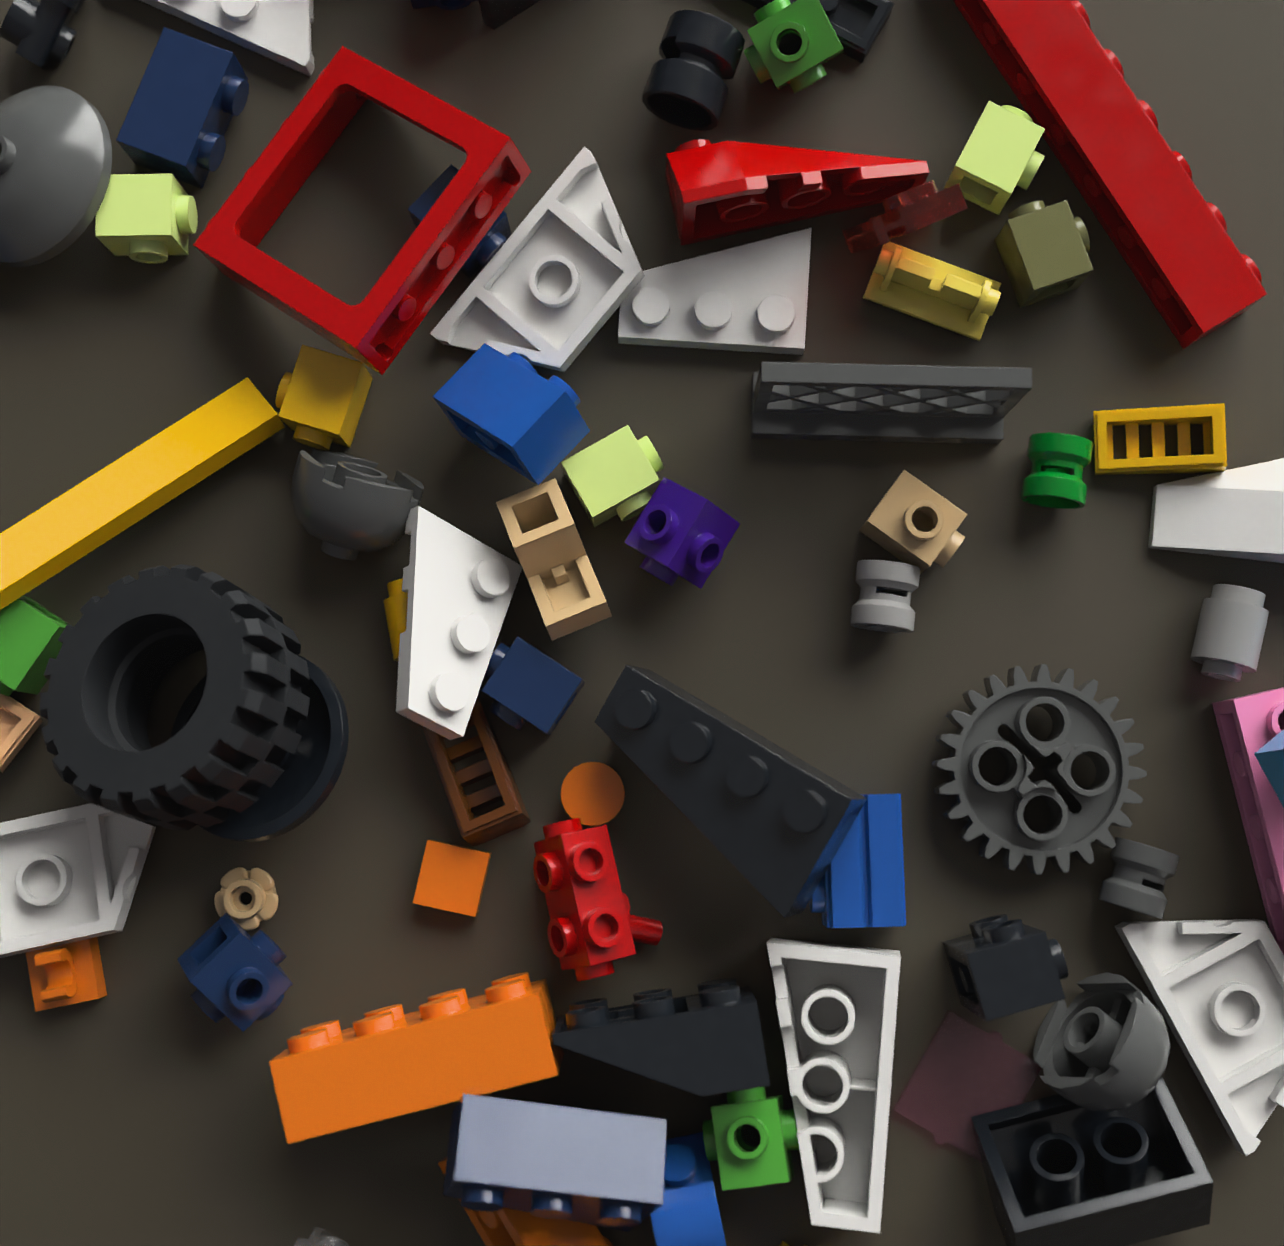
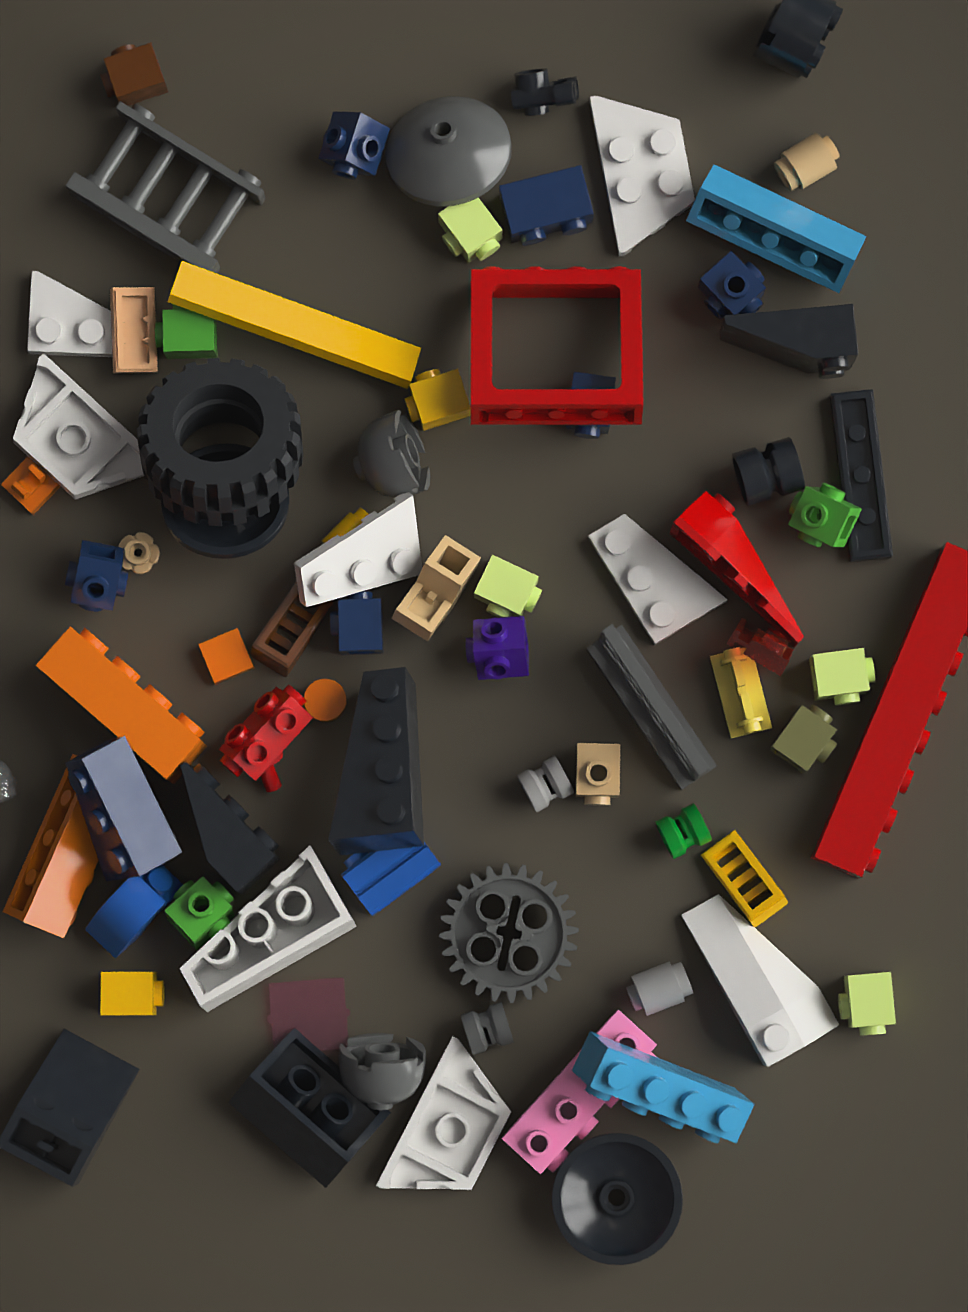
camera: 55 degrees right, 0 degrees up
(513, 412) = (501, 509): blue brick -> none
(551, 277) = (595, 476): white wing -> none
(1005, 967) = (386, 981): black brick -> none

